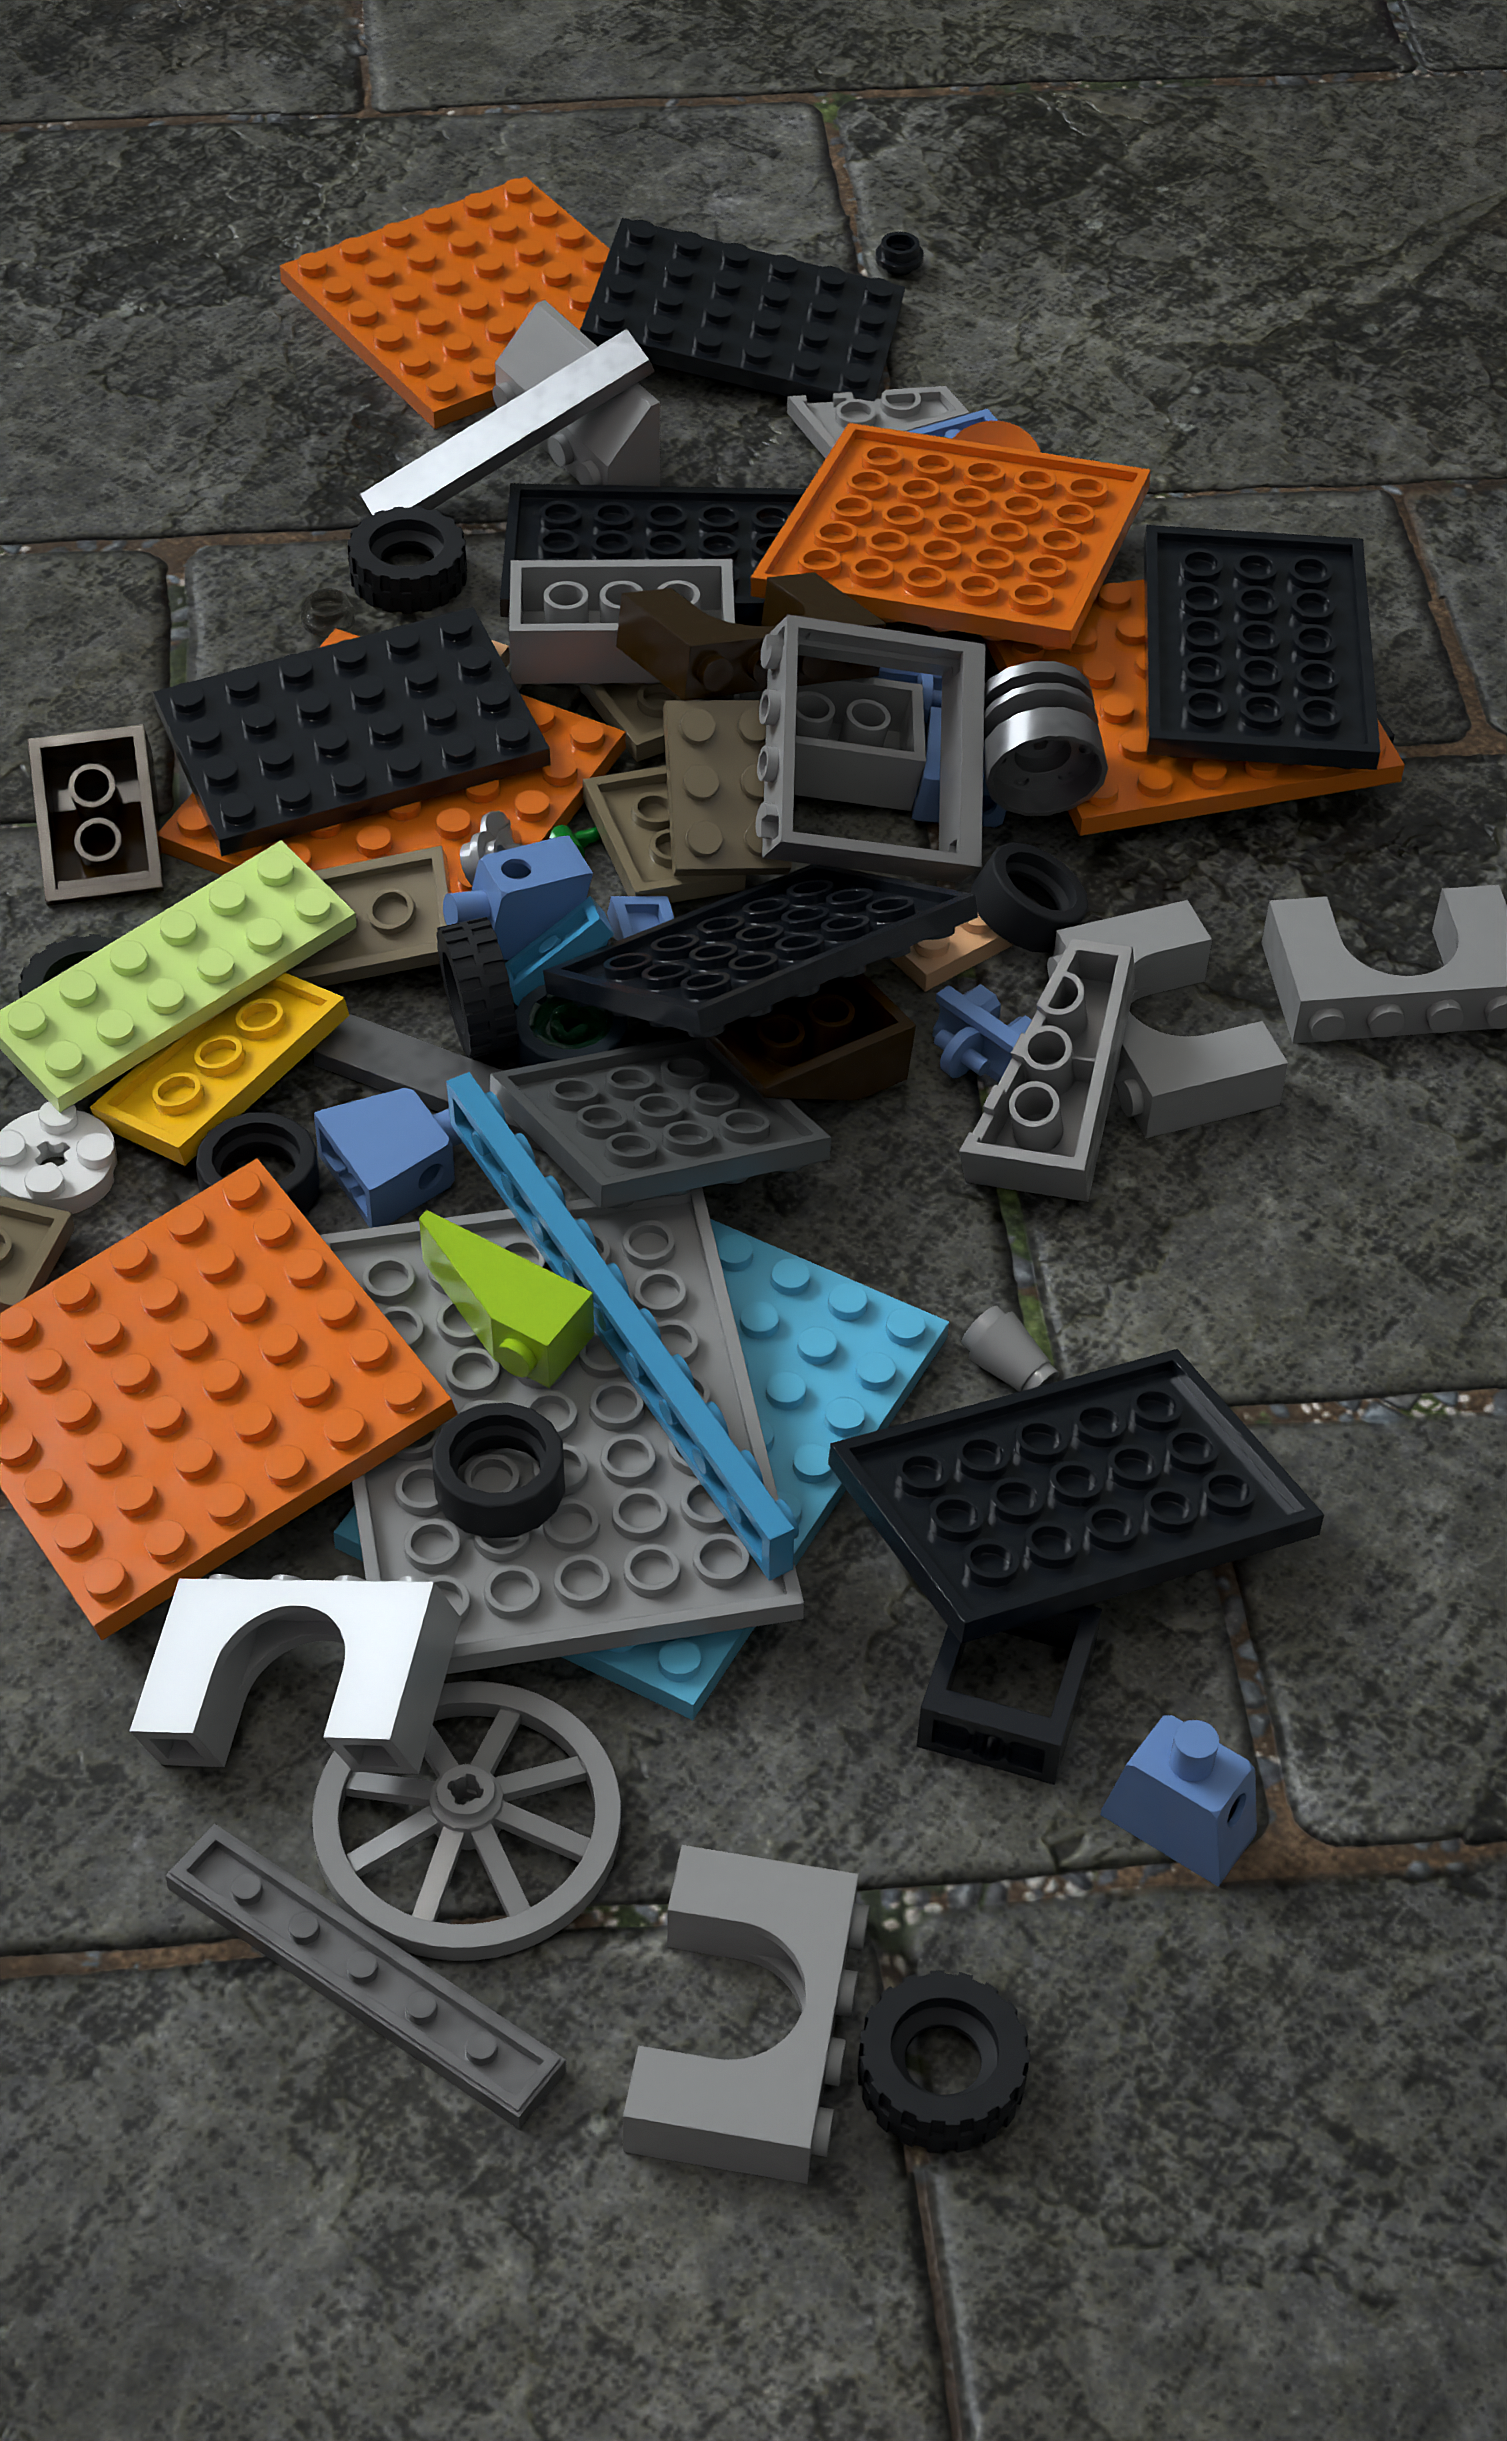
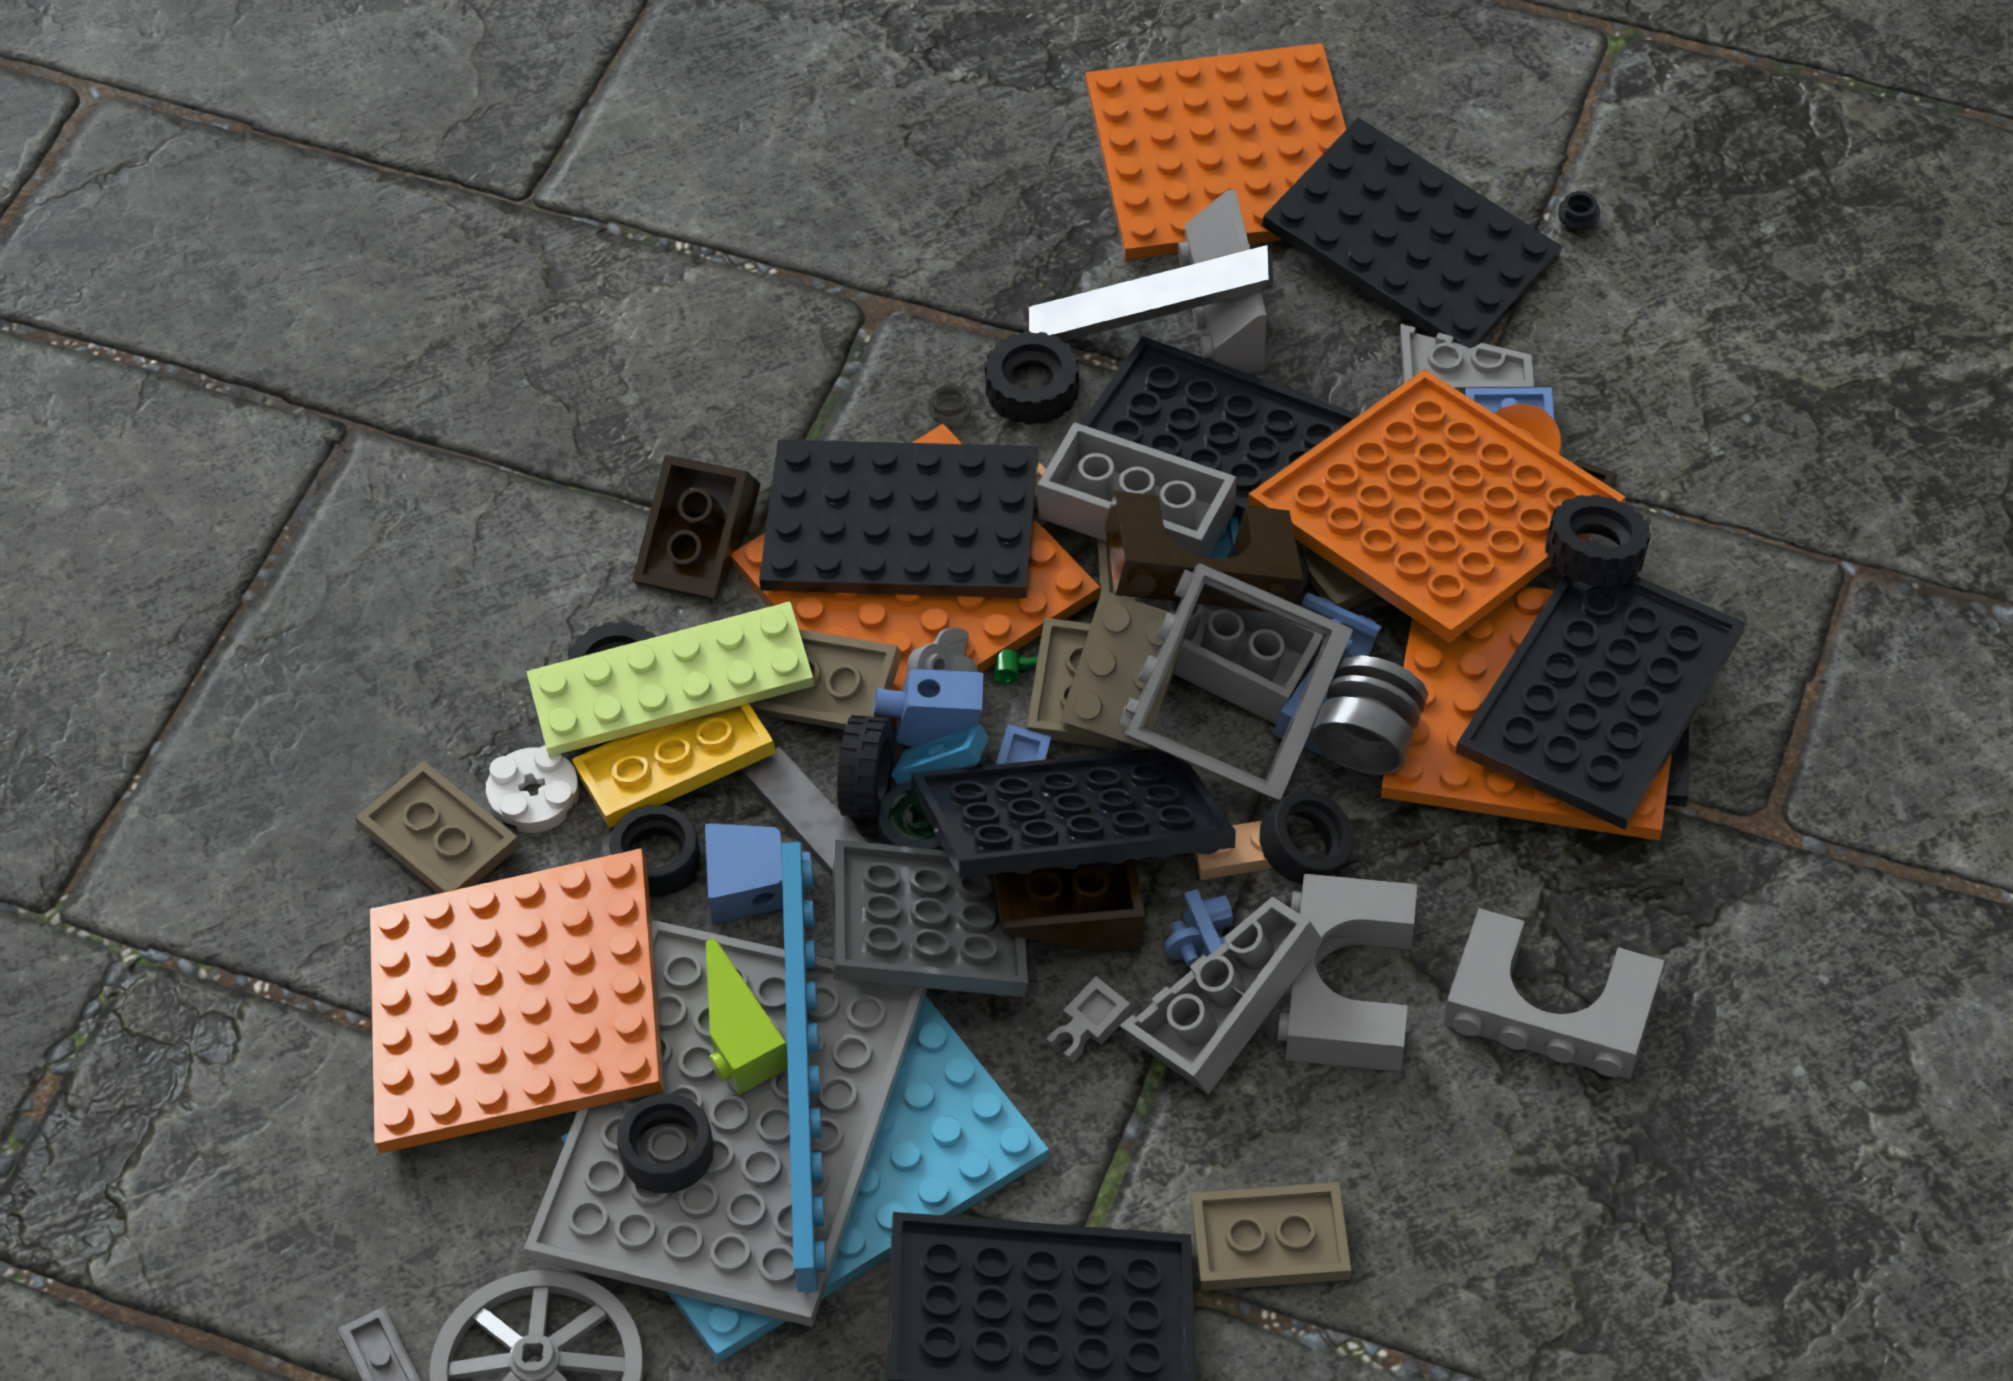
camera: 30 degrees right, 5 degrees up
(232, 1628) = (451, 1182): arch -> none
(905, 1162) = (1093, 1014): none -> light grey plate
(1007, 1350) = (1075, 1188): light grey cone -> none
(1165, 503) = (1593, 563): none -> black tyre
(1265, 1317) = (1270, 1236): none -> dark tan plate

